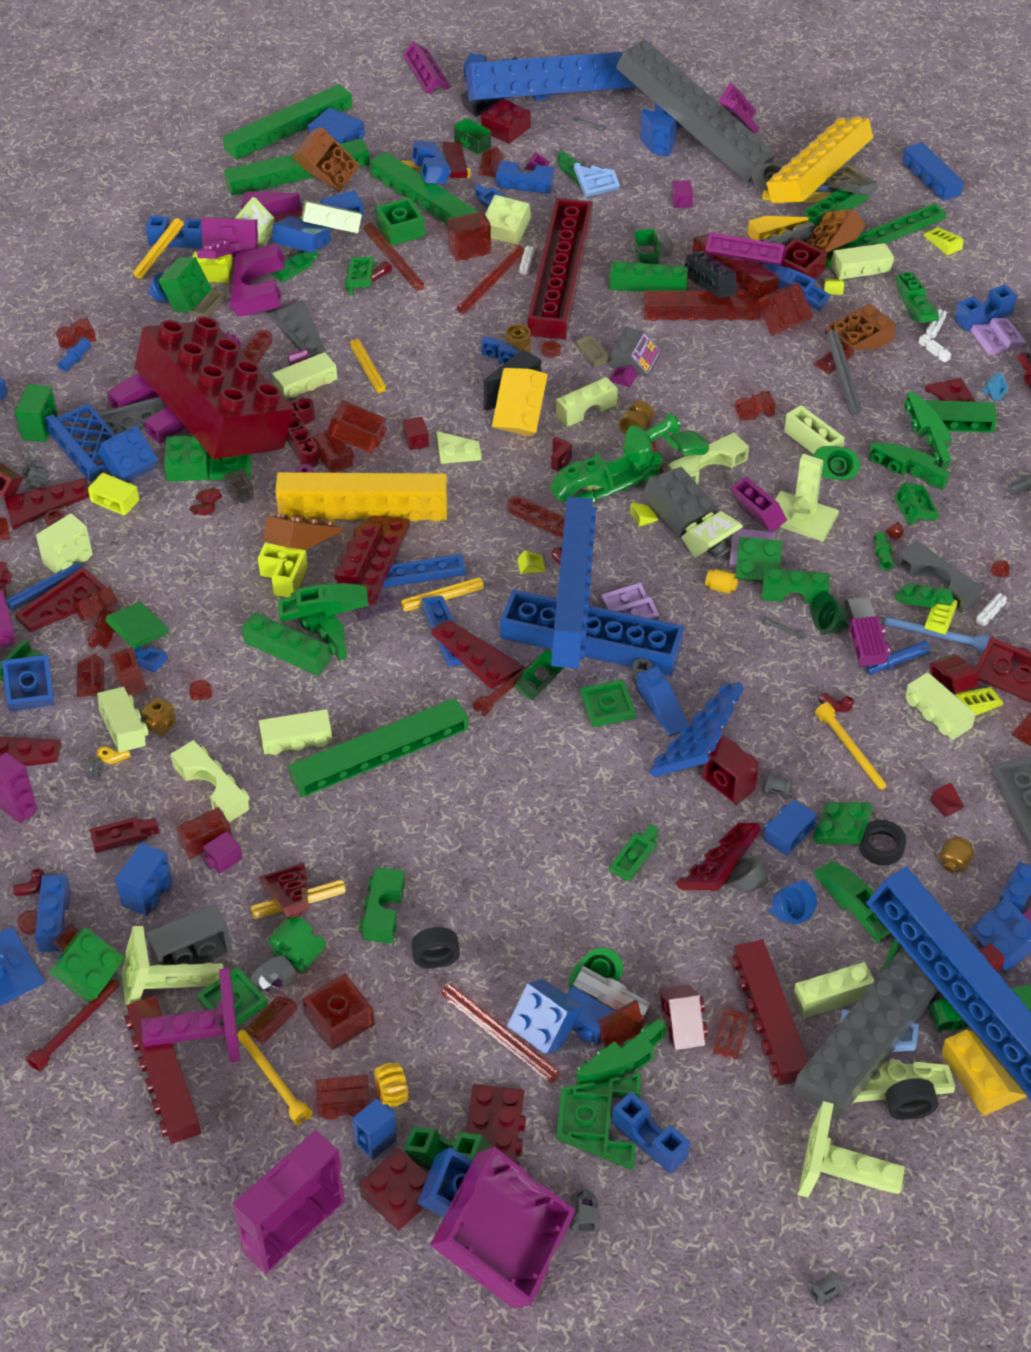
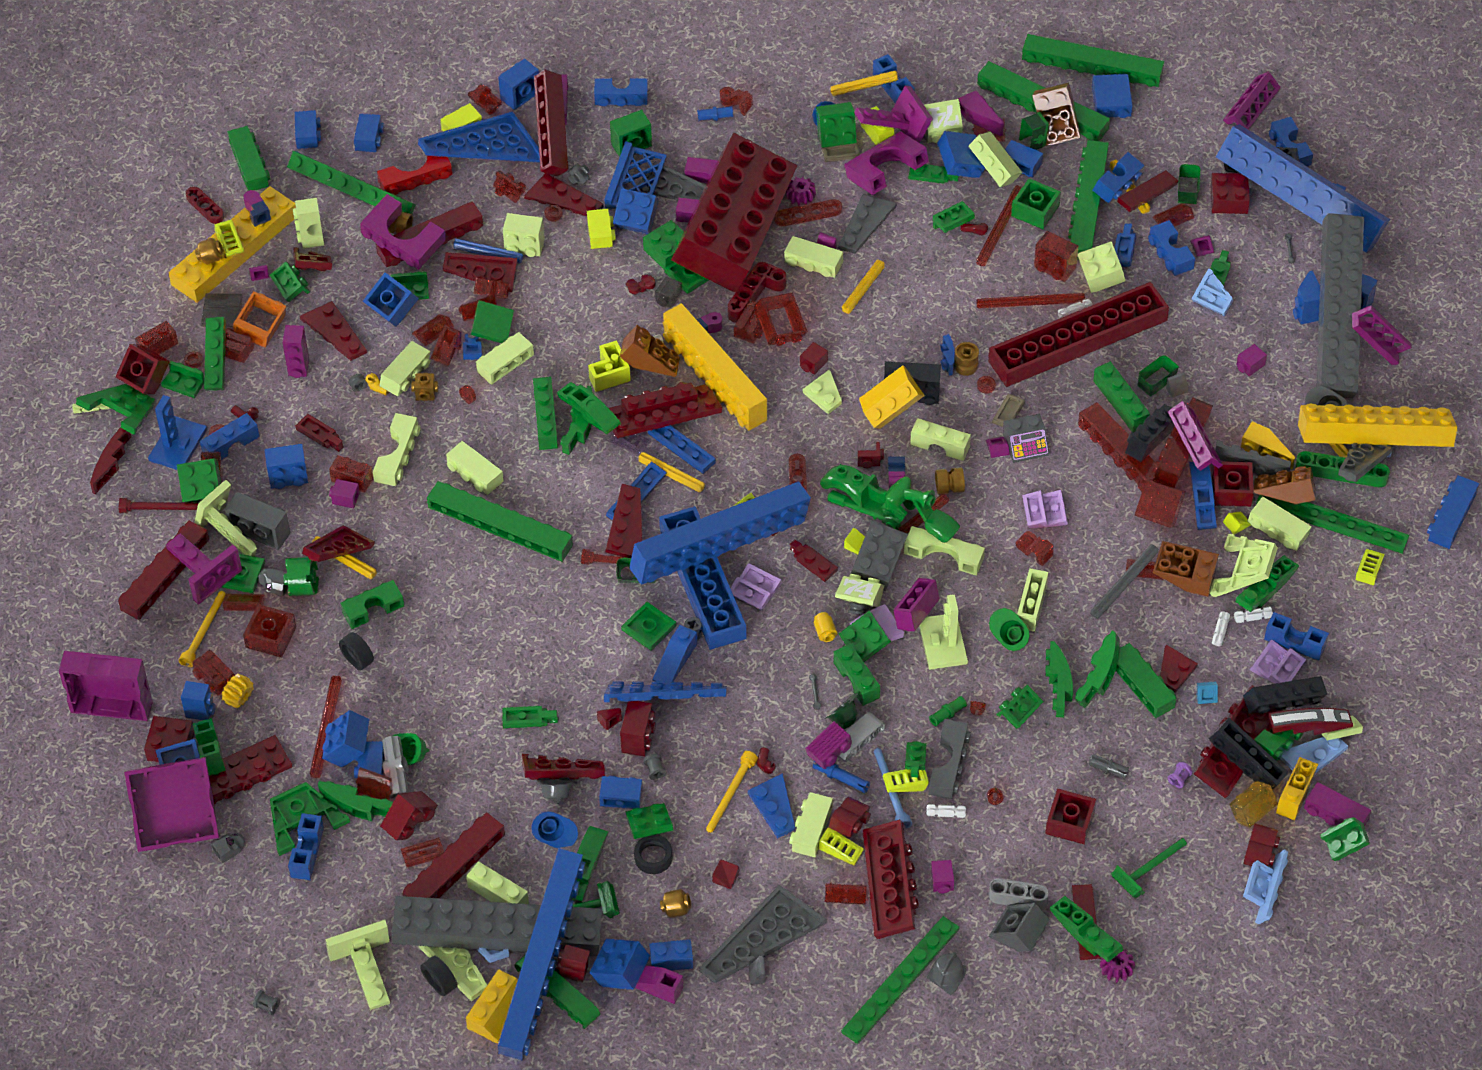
camera: 55 degrees right, 5 degrees up
(187, 639) = (504, 358): none -> yellowish green brick
(325, 168) = (1033, 127): none -> piece
(589, 445) = (896, 469): none -> leg
(636, 552) = (813, 560): none -> dark red hinge
(691, 789) = (609, 717): none -> dark red slope
(718, 382) = (1045, 509): none -> lavender slope
(890, 723) = (774, 805): none -> blue wing
(893, 288) = (1252, 564): none -> yellowish green wing

